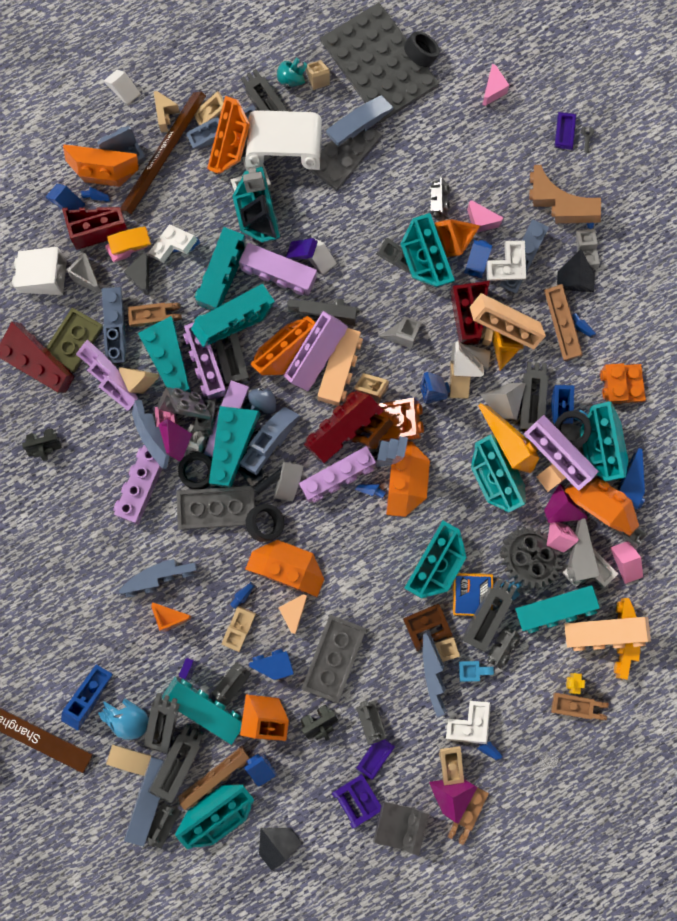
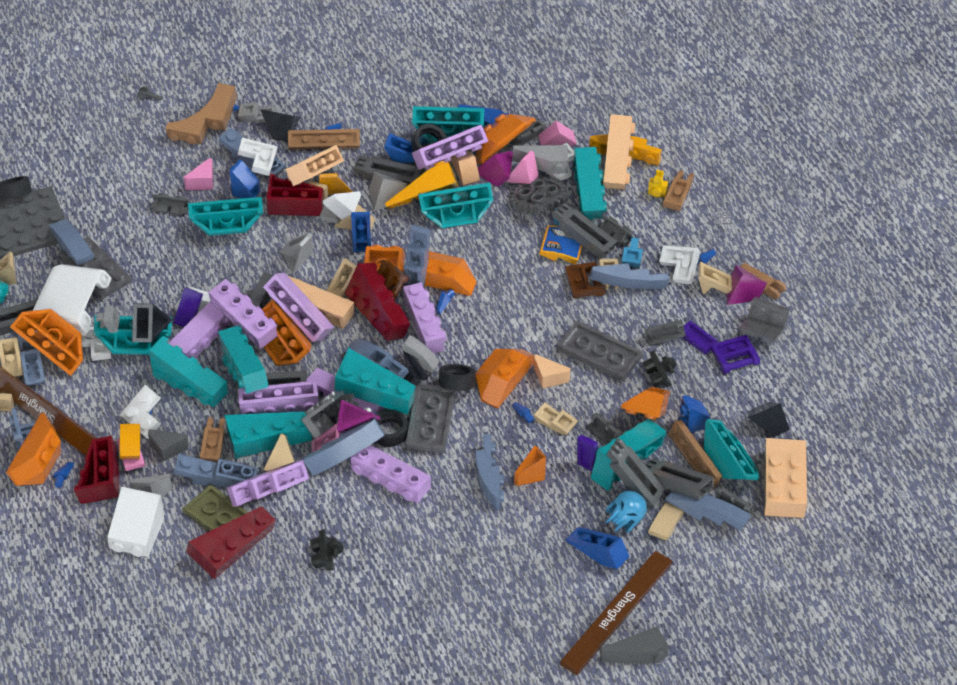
camera: 80 degrees left, 30 degrees down
(64, 198) = (56, 499): blue slope -> none
(198, 875) = (785, 478): none -> light nougat brick
(262, 400) = (331, 361): sand blue piece -> none
(274, 666) = (598, 393): blue slope -> none
(291, 300) = (242, 312): none -> lavender brick
(393, 254) = (216, 246): dark grey slope -> none
(438, 563) = (525, 257): teal wedge -> none
(455, 235) = (214, 190): orange slope -> none
(496, 86) = (70, 146): bright pink slope -> none
(565, 130) = (135, 108): dark purple tile -> none
(622, 383) = (393, 112): orange plate -> none

